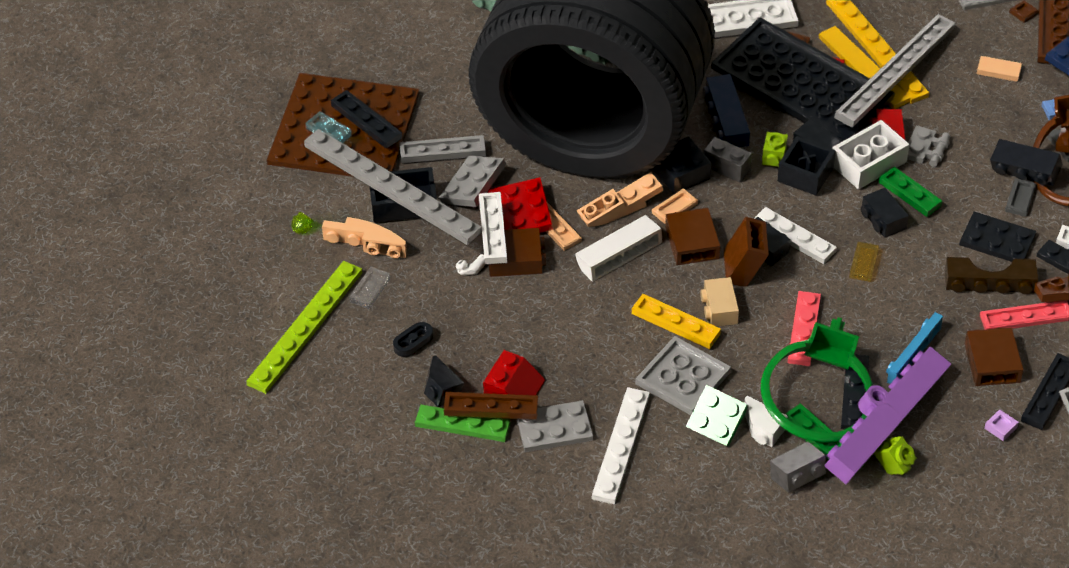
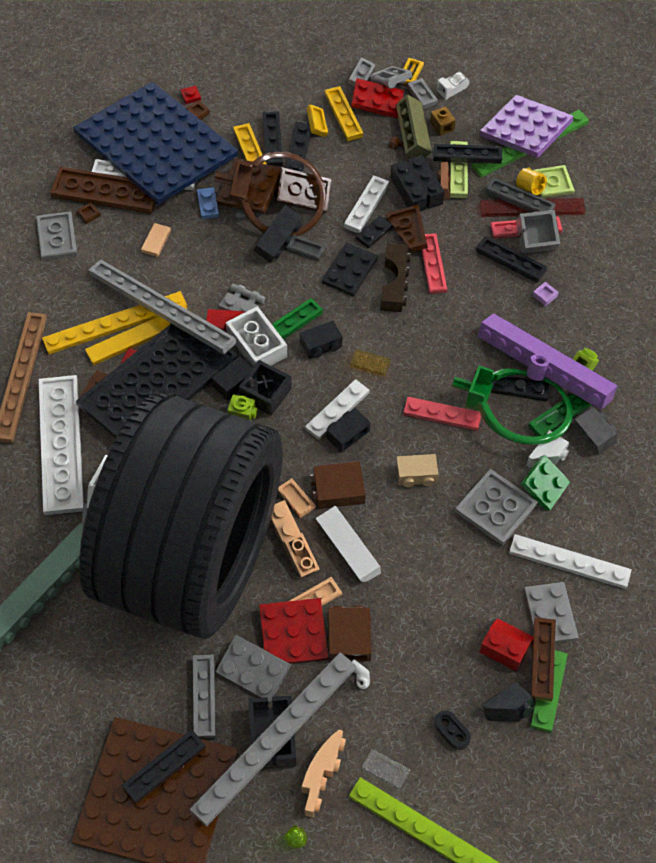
camera: 90 degrees left, 10 degrees up
(329, 126) = (174, 805): clear light blue plate -> none
(492, 228) = (332, 644): white plate -> none
(676, 321) = (435, 507): yellow plate -> none
(746, 251) = (374, 439): reddish brown brick -> none
(928, 331) = (467, 335): dark azure plate -> none
(993, 356) = (478, 288): reddish brown brick -> none

